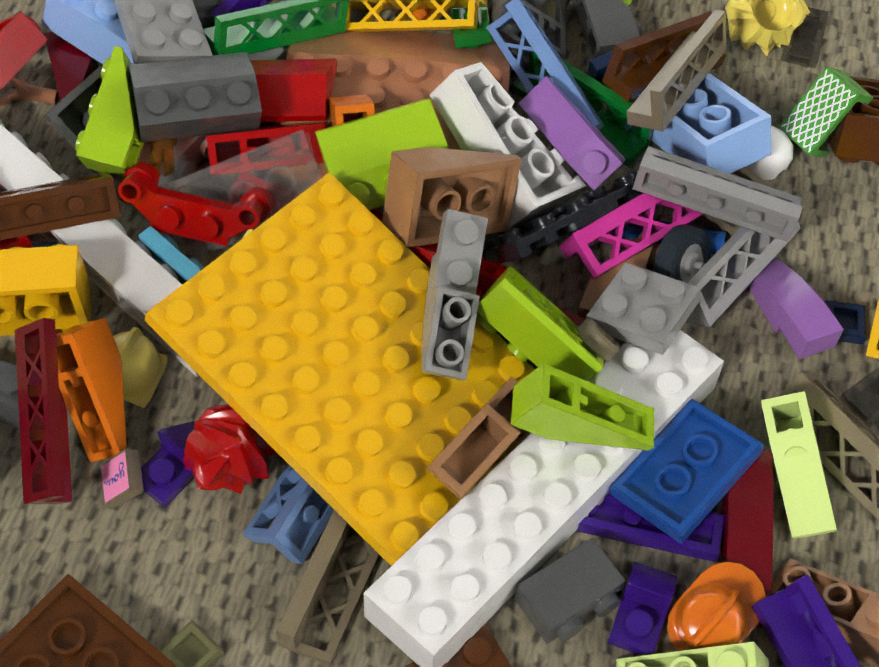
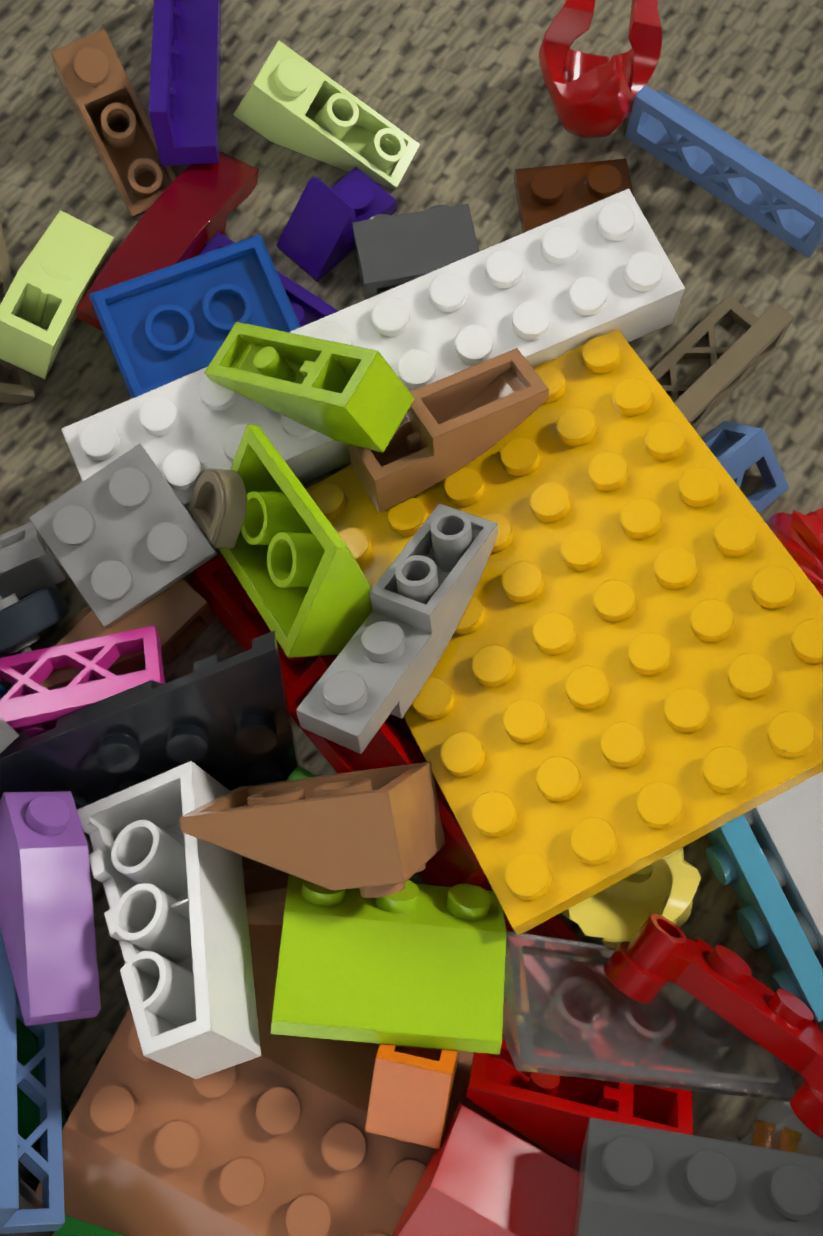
camera: 155 degrees left, 15 degrees up
(716, 608) = (261, 172): orange piece -> none

